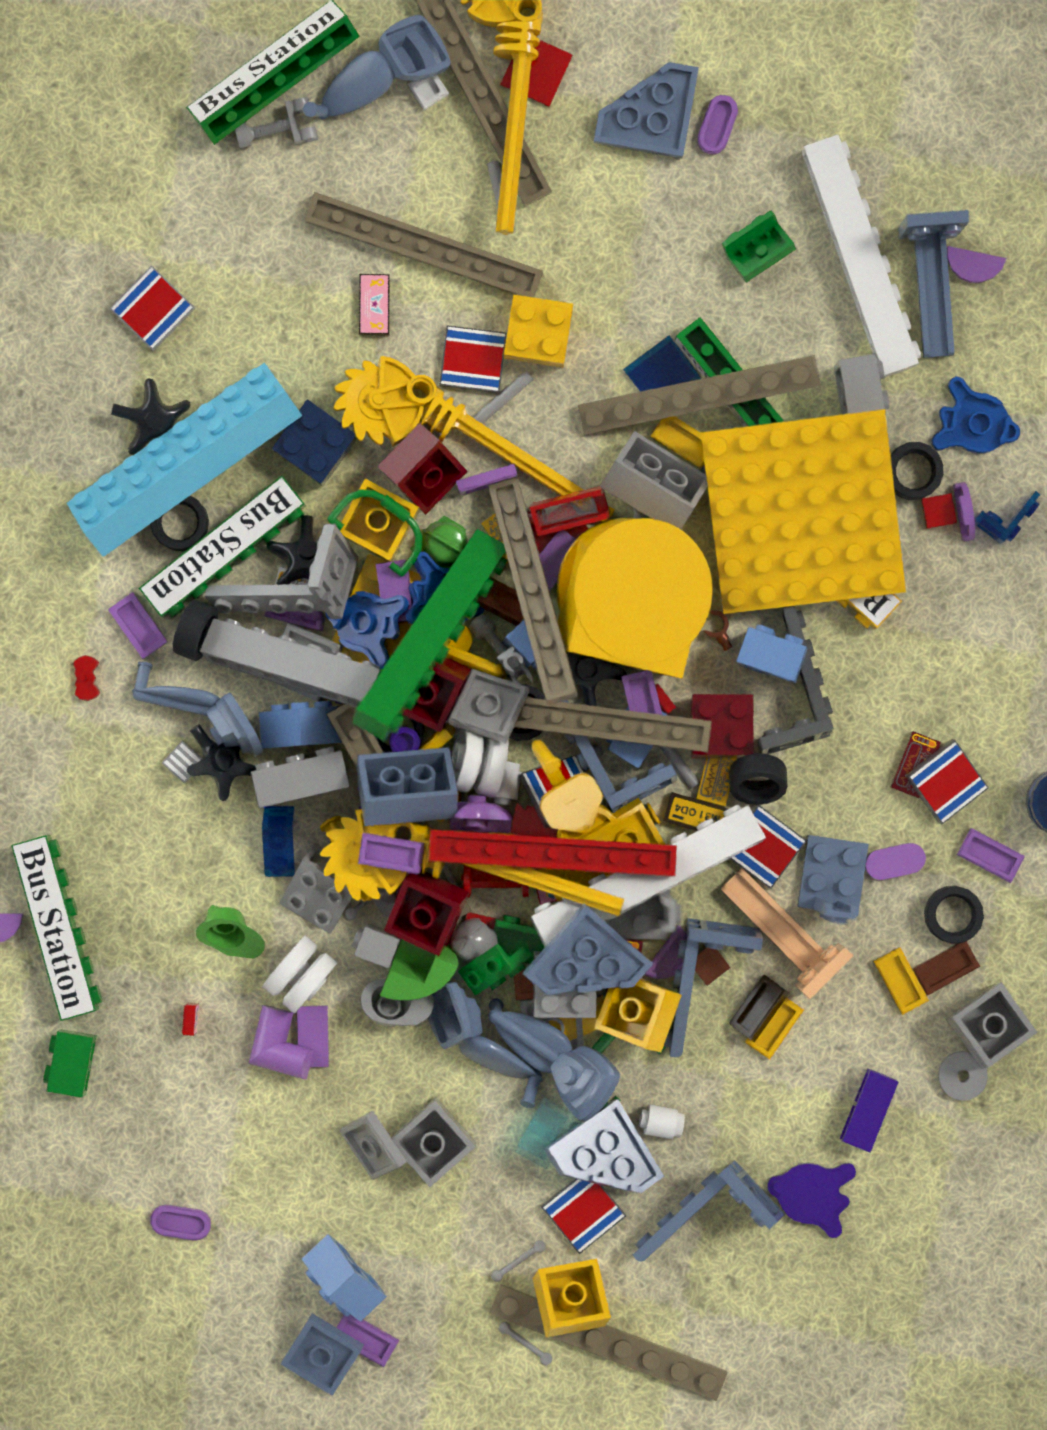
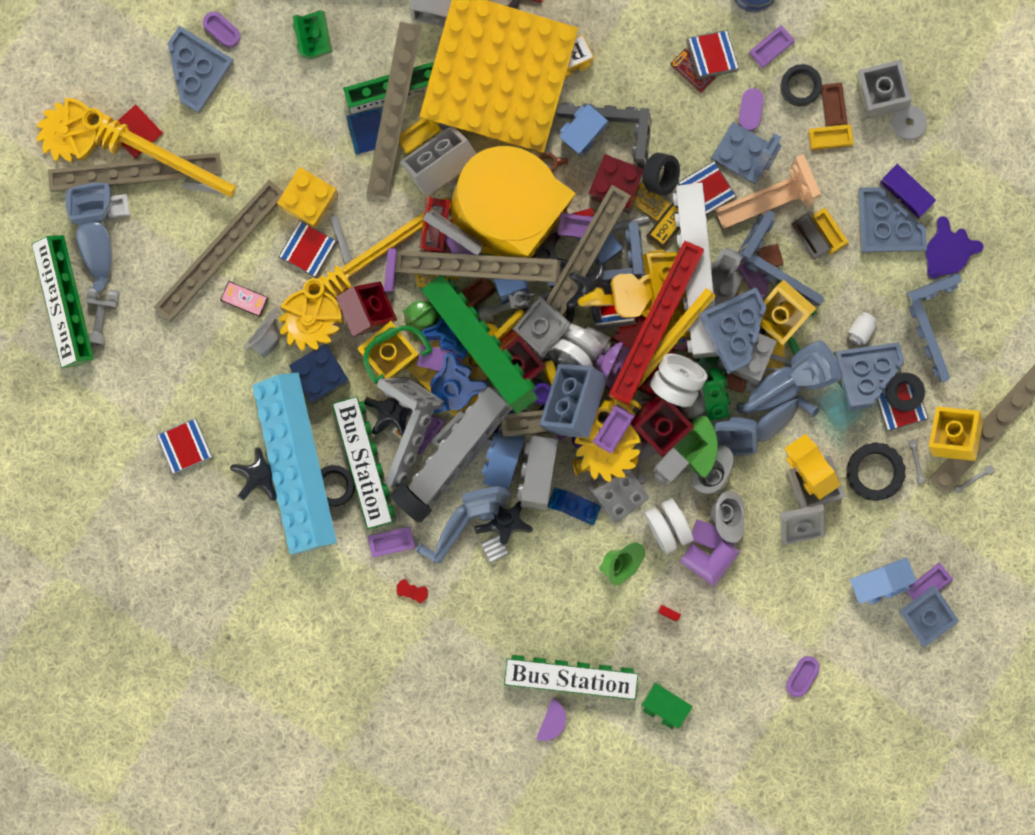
camera: 70 degrees left, 5 degrees down
(335, 353) = (265, 337): none -> light grey piece
(344, 1046) = (729, 516): none -> light grey piece
(448, 1129) = (812, 467): none -> yellow brick
(477, 1244) = (898, 475): none -> black tyre
(489, 911) = (678, 380): none -> white wheel
(564, 541) = (454, 232): none -> light grey tile
(565, 746) = (588, 284): none -> black animal
(595, 1228) = (918, 392): none -> black tyre
(813, 1100) = (887, 225): none -> sand blue plate

